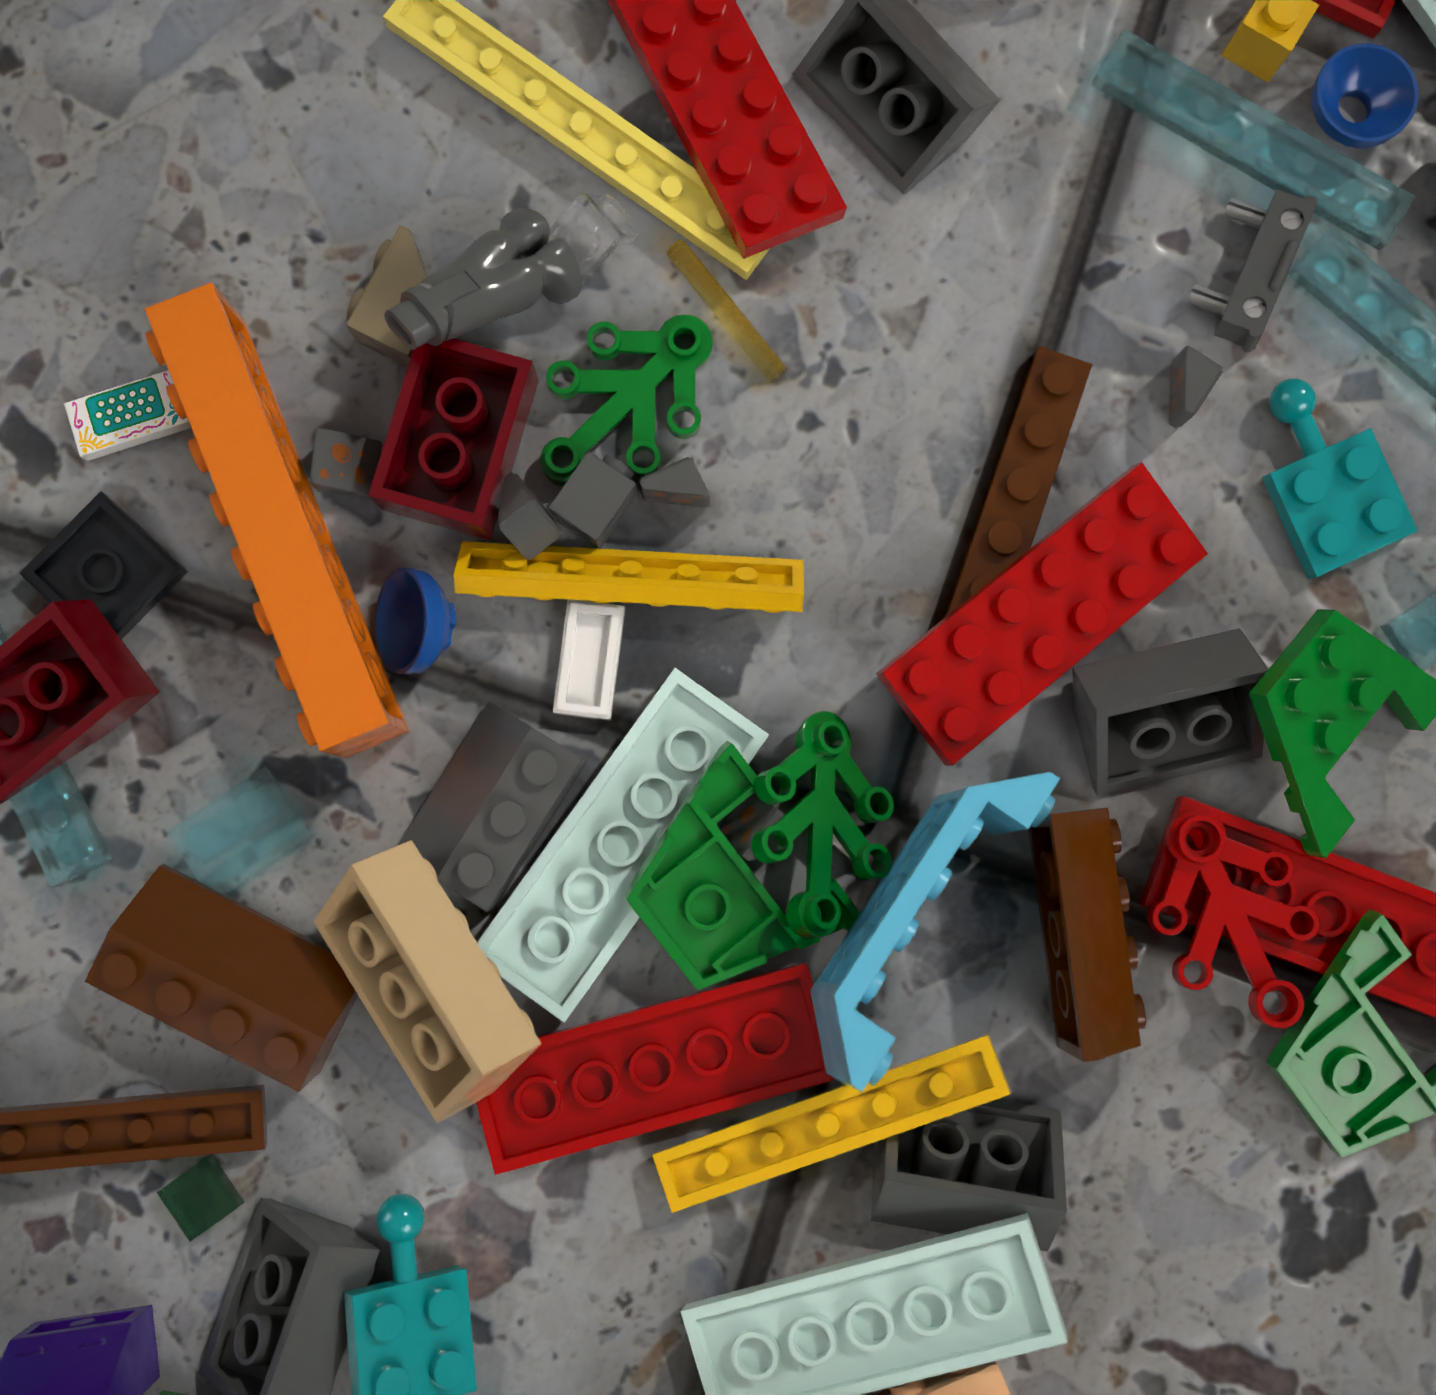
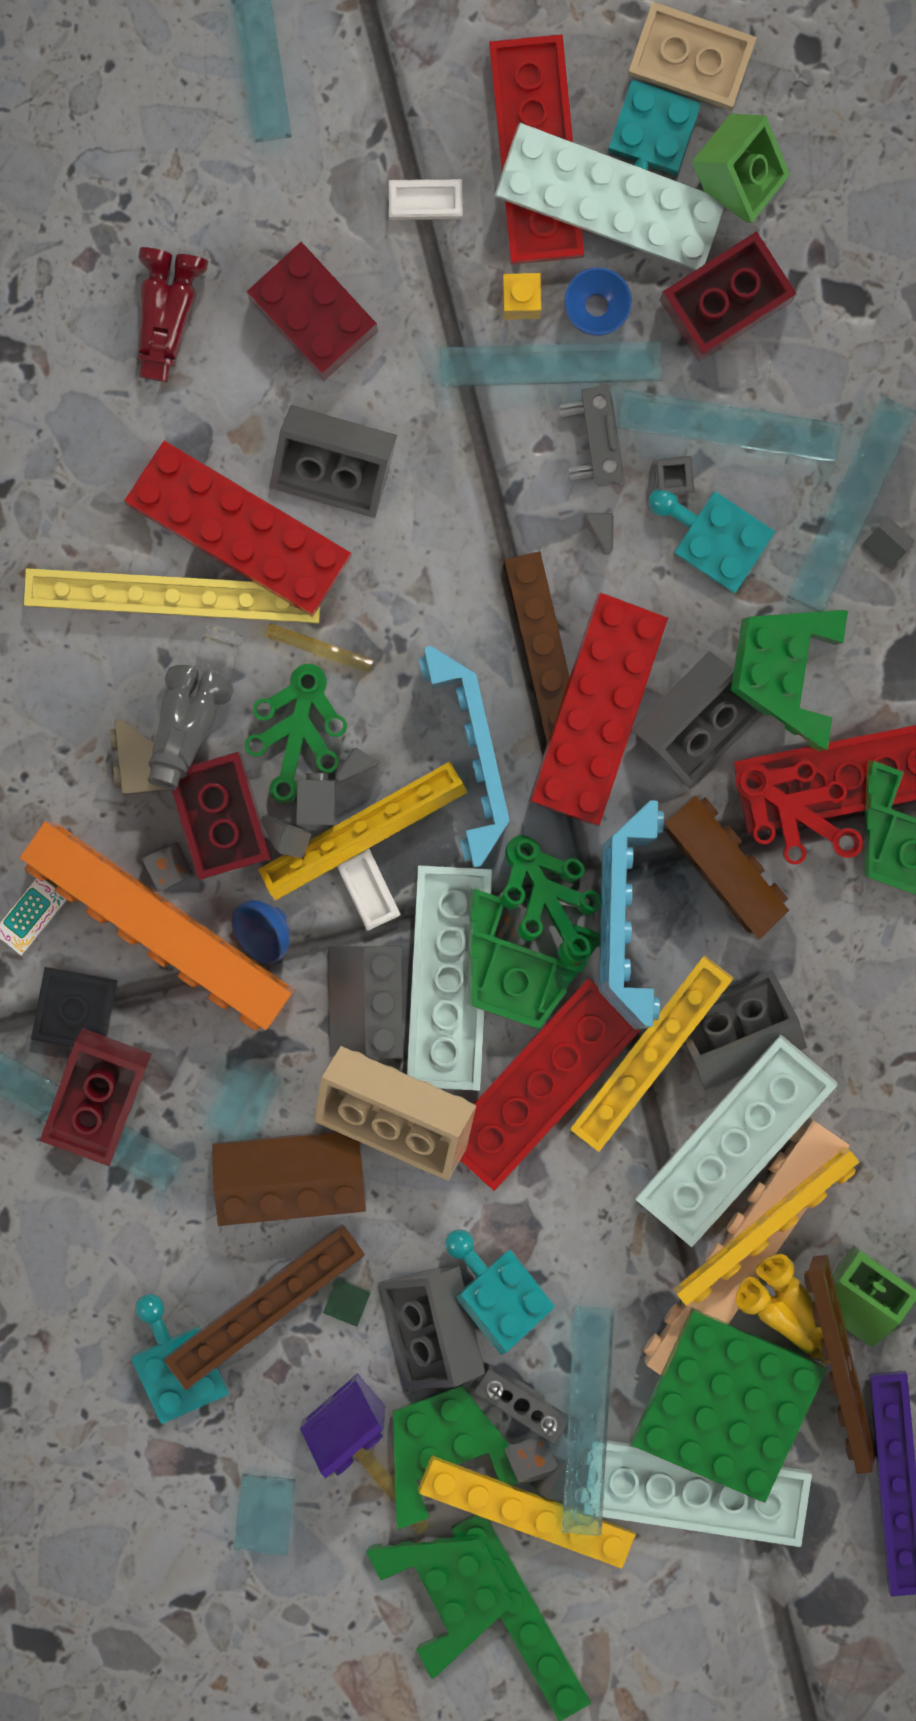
camera: 25 degrees left, 5 degrees up
(878, 439) = (446, 671): none -> medium azure slope
(1331, 373) = (674, 474): none -> dark grey slope

